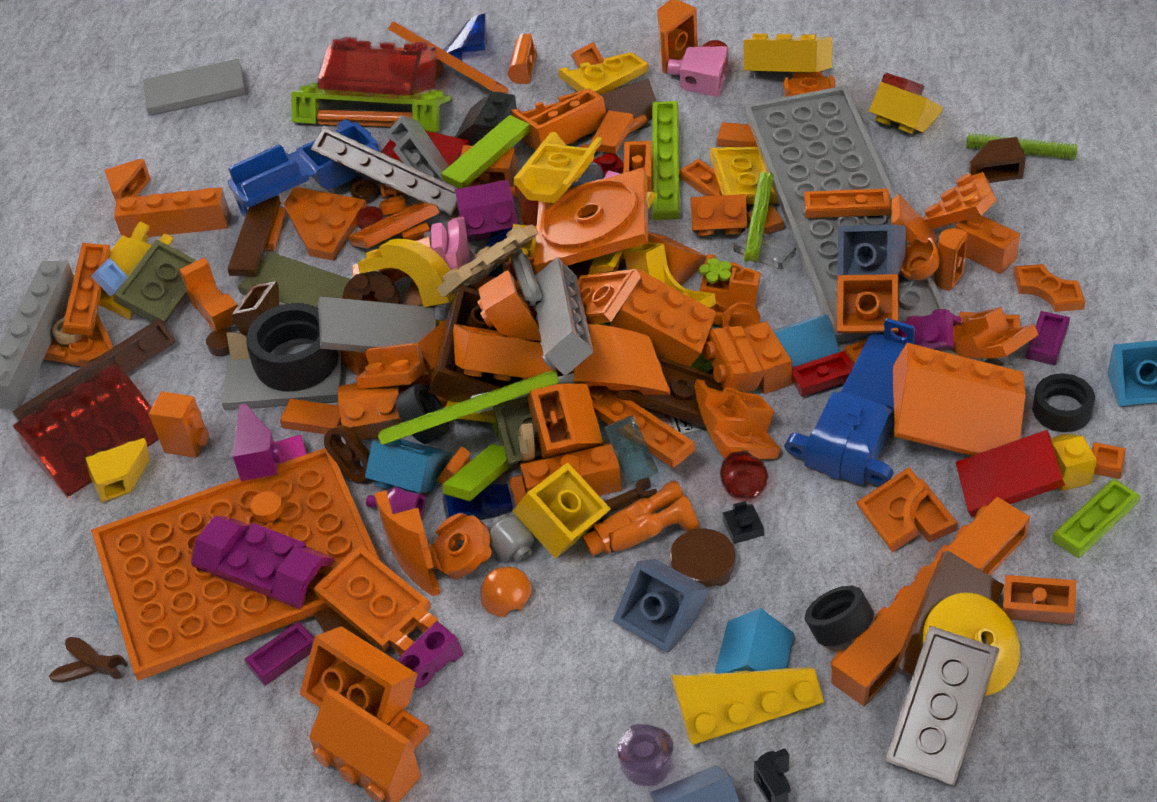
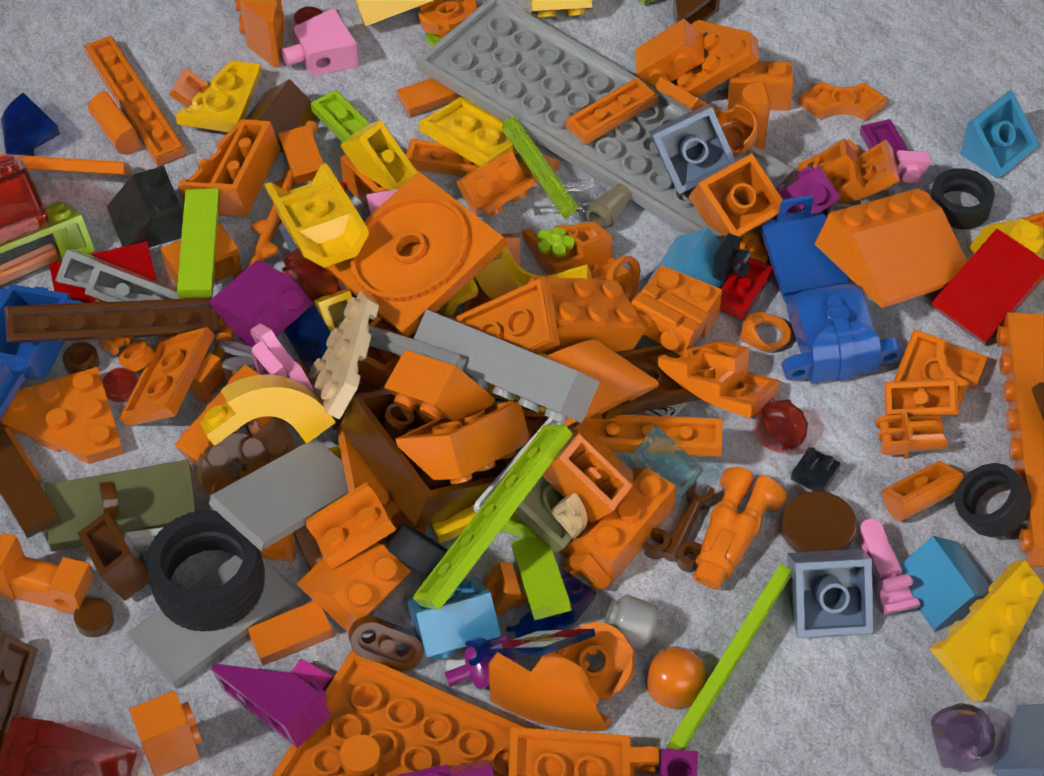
camera: 45 degrees left, 5 degrees up
(237, 346) = (129, 607): tan tile -> none
(287, 276) = (109, 498): none -> reddish brown tile
(435, 505) = (527, 642): none -> clear blue flag
(541, 602) = (730, 659): none -> lime tile
(552, 52) = (135, 101): none -> orange tile
(561, 510) = (665, 563): yellow slope -> none
(641, 148) = (379, 156): none -> yellow slope
(710, 629) = (892, 587): none -> bright pink piece
(783, 268) = (609, 206): none -> dark tan cone
(800, 580) = (921, 490): none -> orange brick
(804, 399) = (751, 337): none -> orange piece
(823, 344) = (730, 259): none -> black tile
(835, 539) = (910, 434): none -> orange arm
(866, 518) = (922, 397): none -> orange brick
(933, 185) = (670, 53): none -> orange brick
(1041, 356) = (911, 165): none -> bright pink plate

